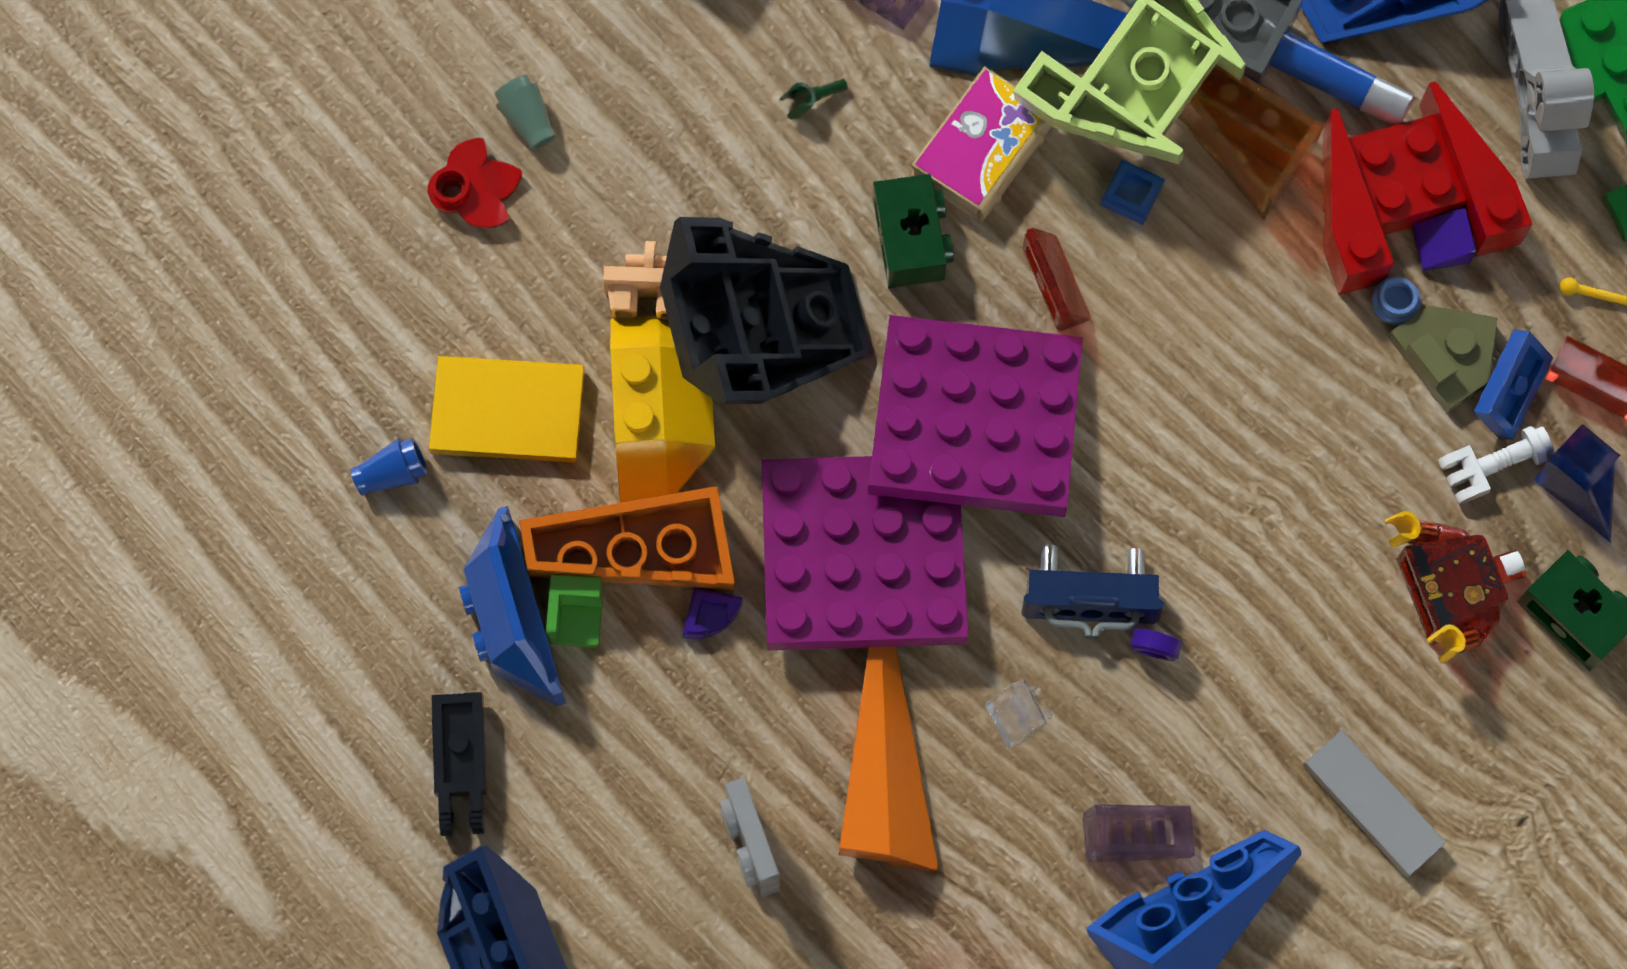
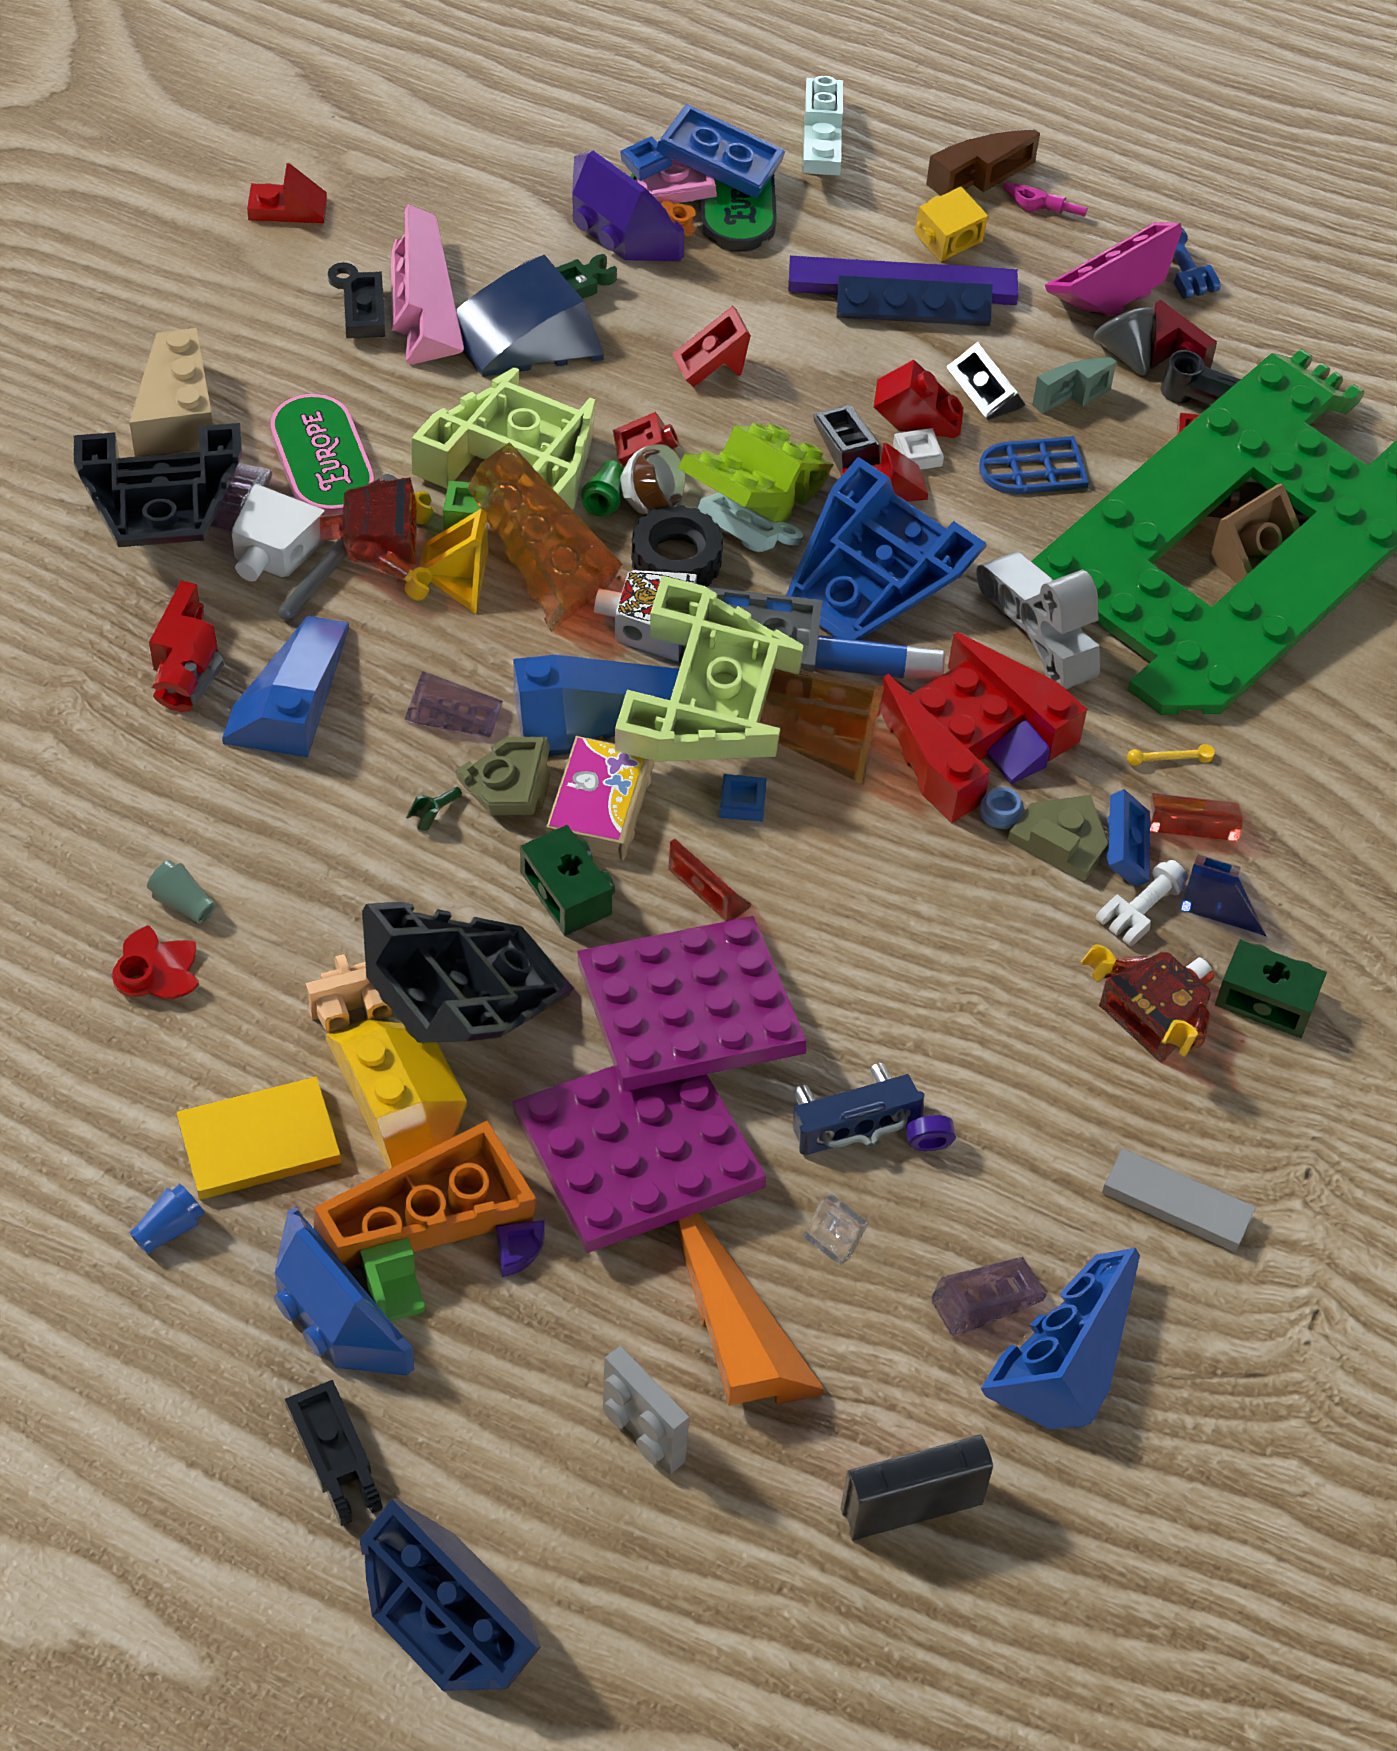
camera: 25 degrees left, 20 degrees down
(901, 89) = (510, 777): none -> olive plate

